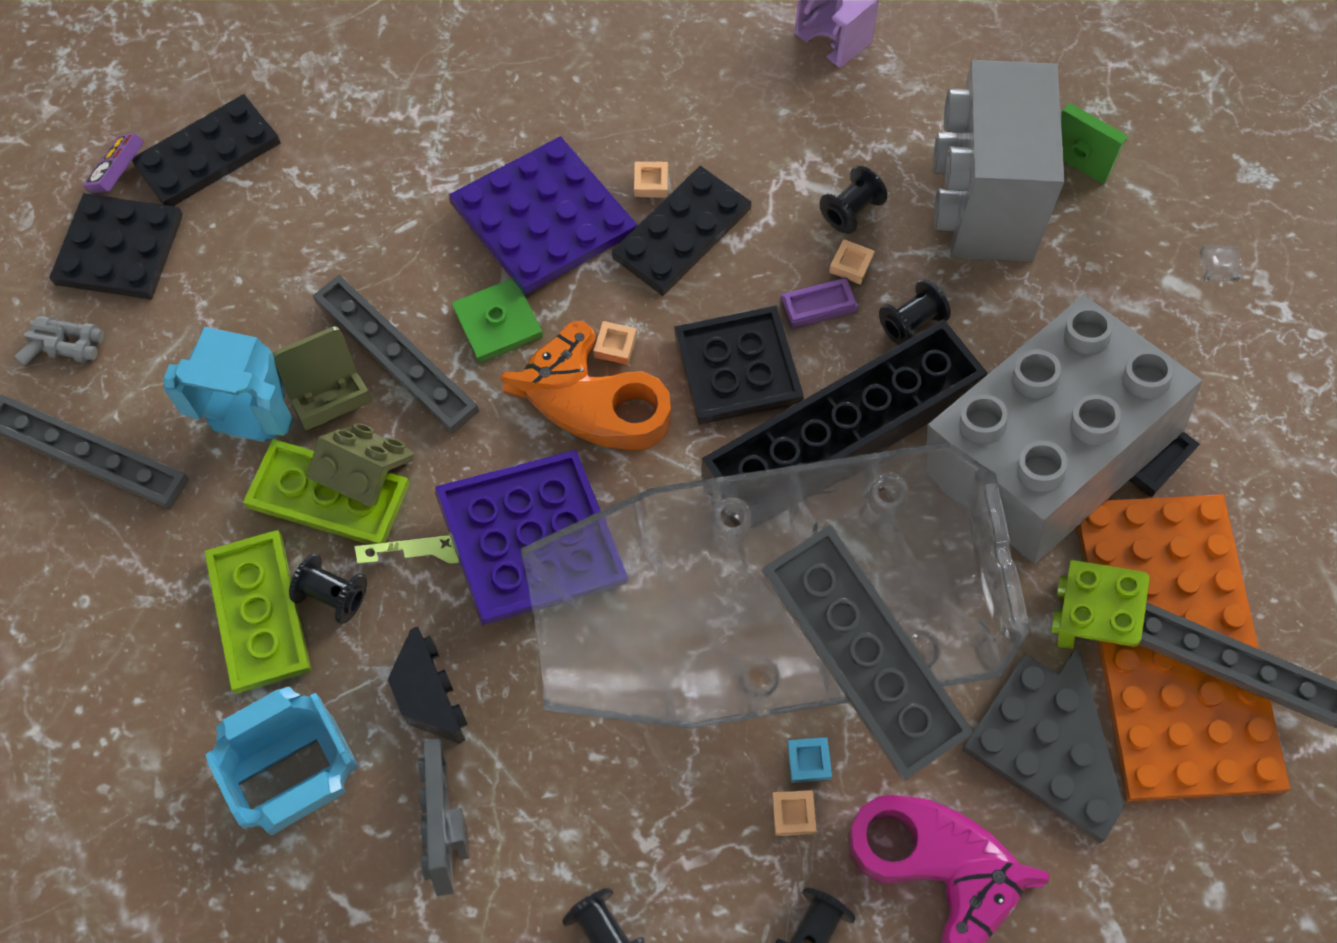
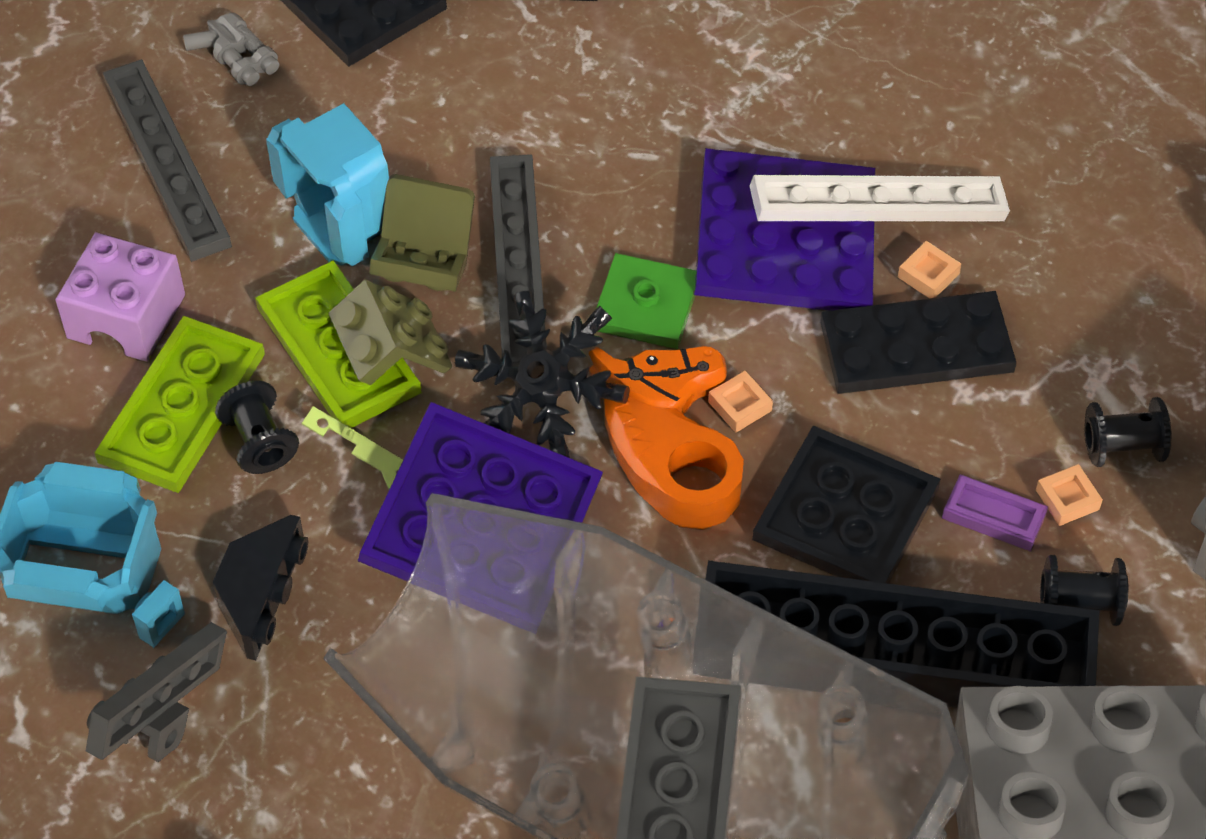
camera: 40 degrees right, 10 degrees down
(148, 568) = (122, 293): none -> lavender piece
(377, 762) = (158, 613): none -> medium azure plate
(499, 411) = (555, 378): none -> black piece
(585, 155) = (878, 198): none -> white plate

